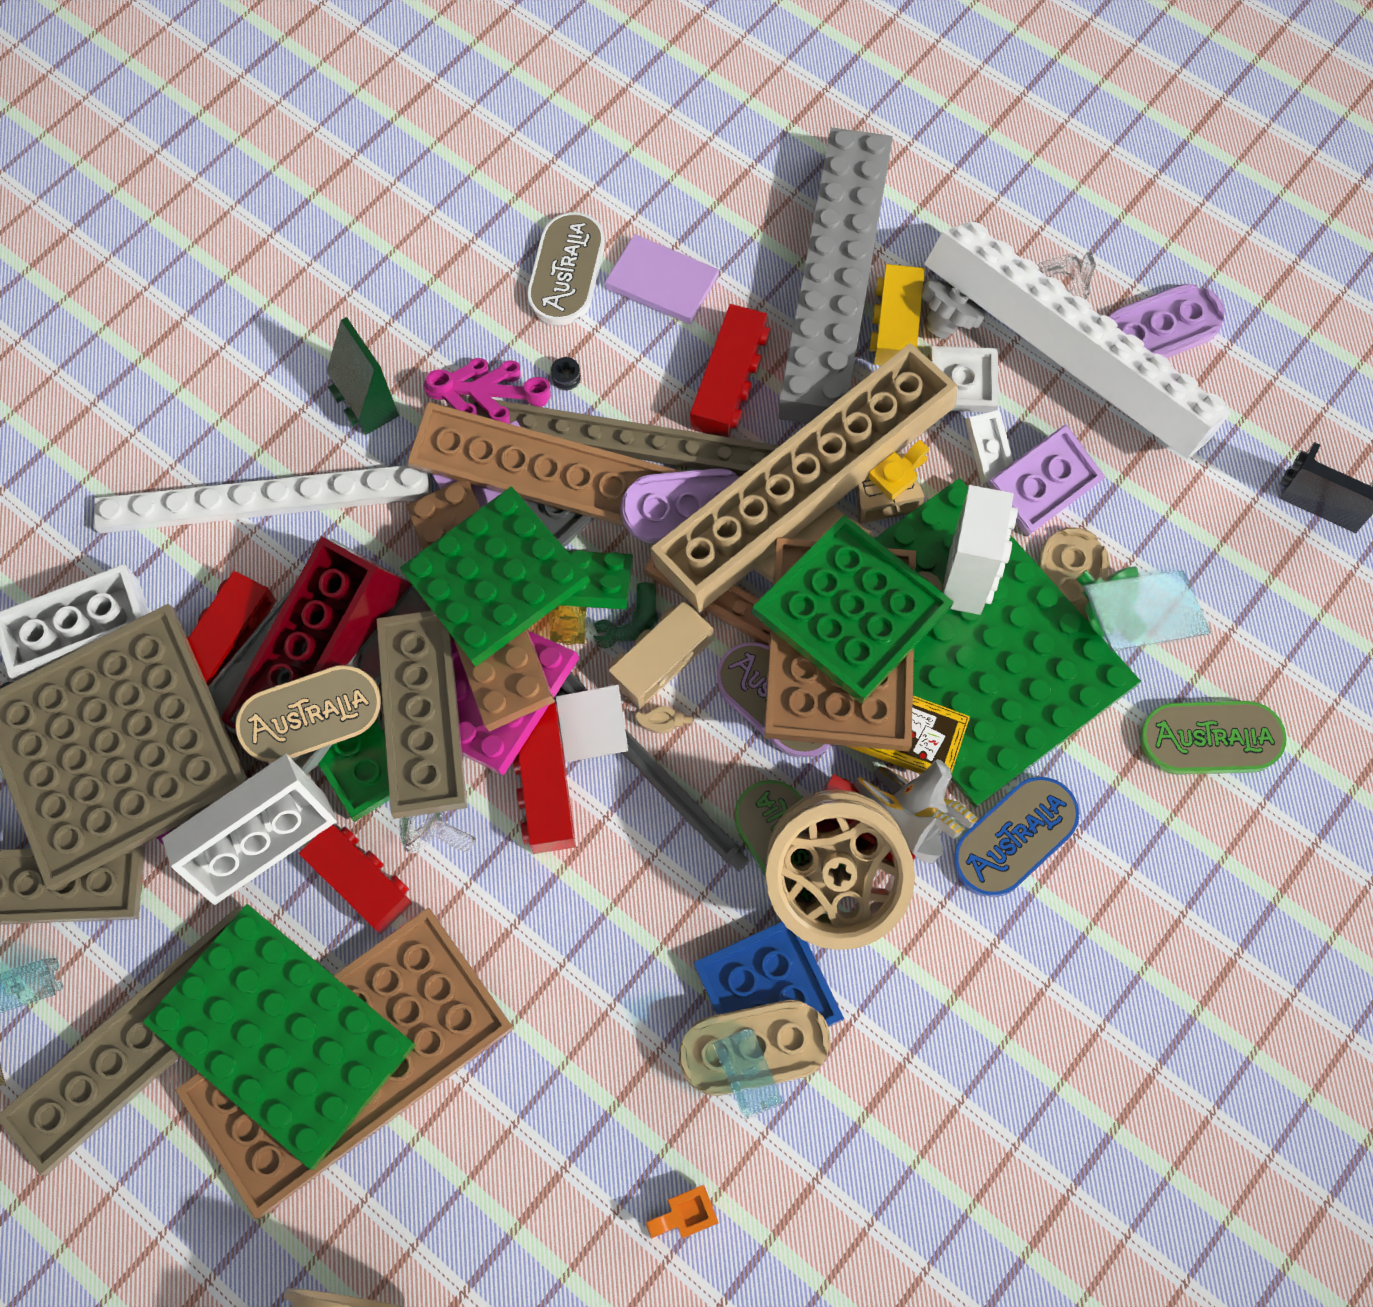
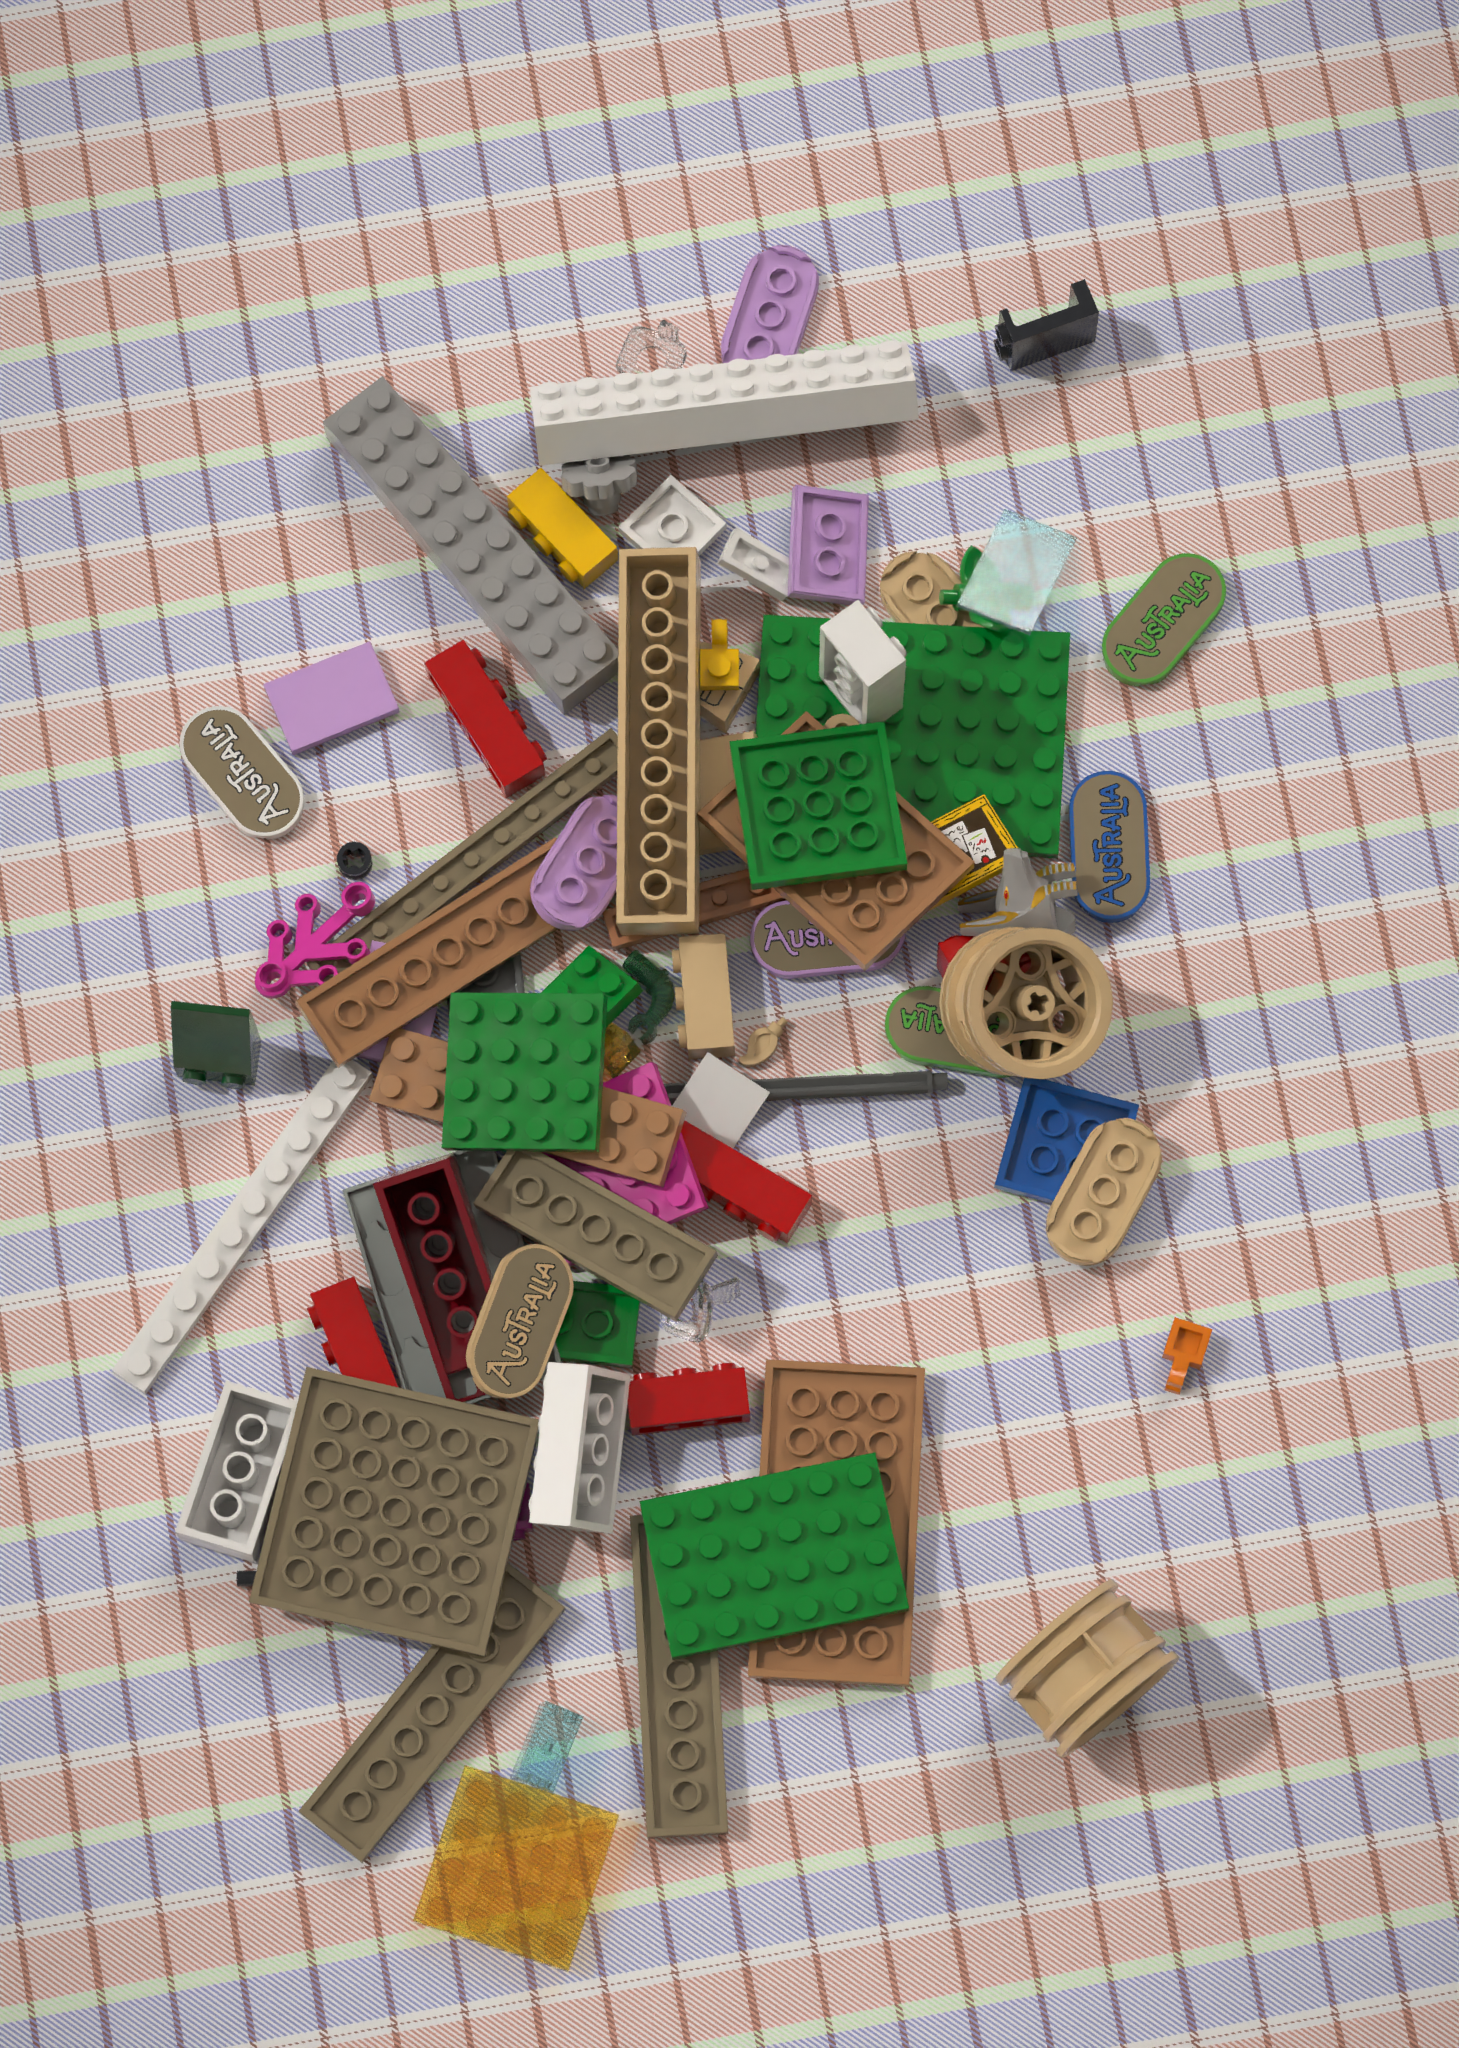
camera: 50 degrees left, 5 degrees up
(748, 1073) = (1122, 1211): clear light blue hinge -> none

